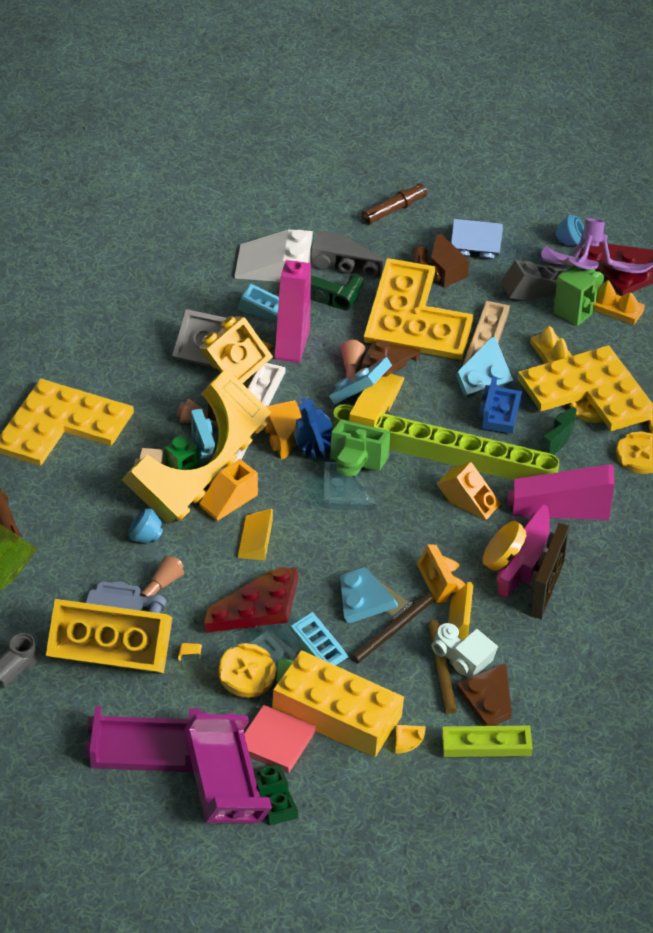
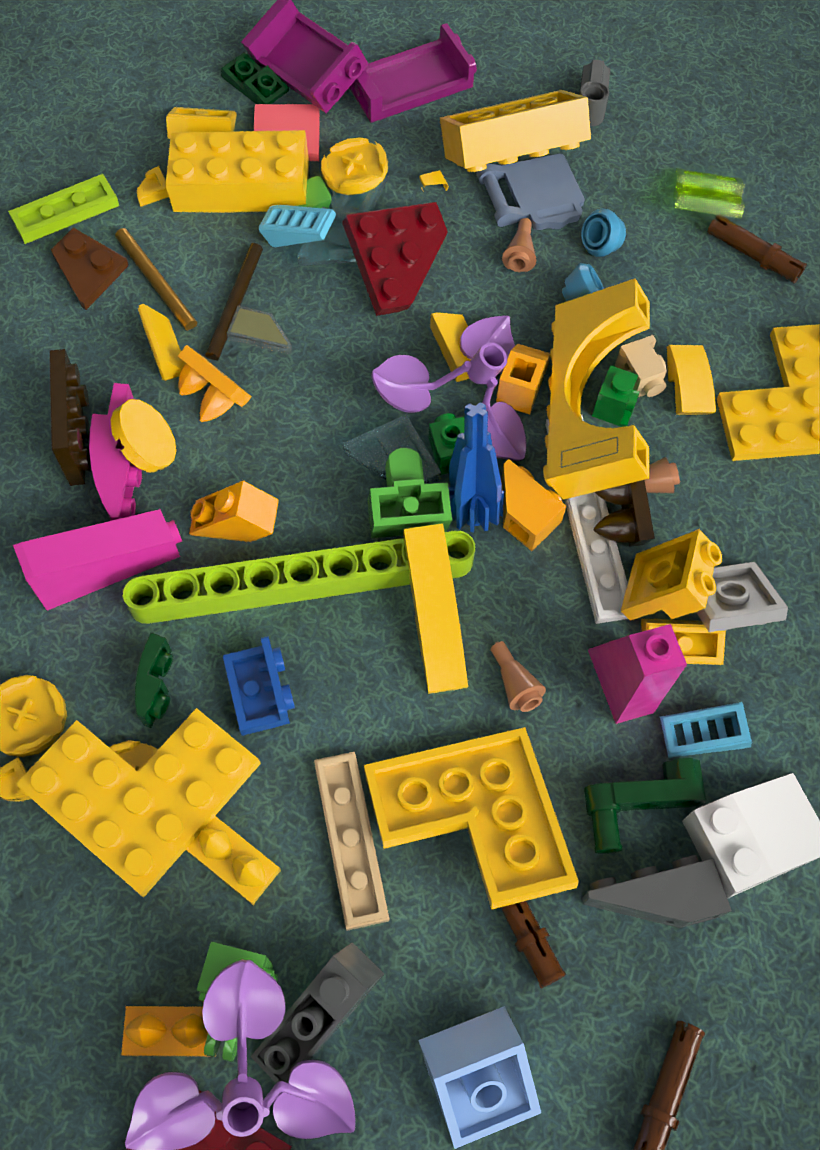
camera: 150 degrees right, 20 degrees up
(100, 555) = (603, 232): none -> dark azure cone
(122, 452) = (692, 378): none -> yellow slope
(201, 435) = (601, 401): medium azure wing -> none
(267, 474) = (405, 385): none -> medium lavender plant
(305, 475) = (443, 439): none -> green brick
(338, 778) = (199, 120): none -> yellow slope
(360, 381) = (469, 618): medium azure wing -> none
(364, 595) = (285, 312): medium azure wing -> none
(396, 355) = (469, 703): reddish brown wing -> none
(448, 262) = (497, 972): reddish brown slope -> none
(465, 655) = (125, 286): light aqua brick -> none
(482, 367) = (315, 747): medium azure wing -> none

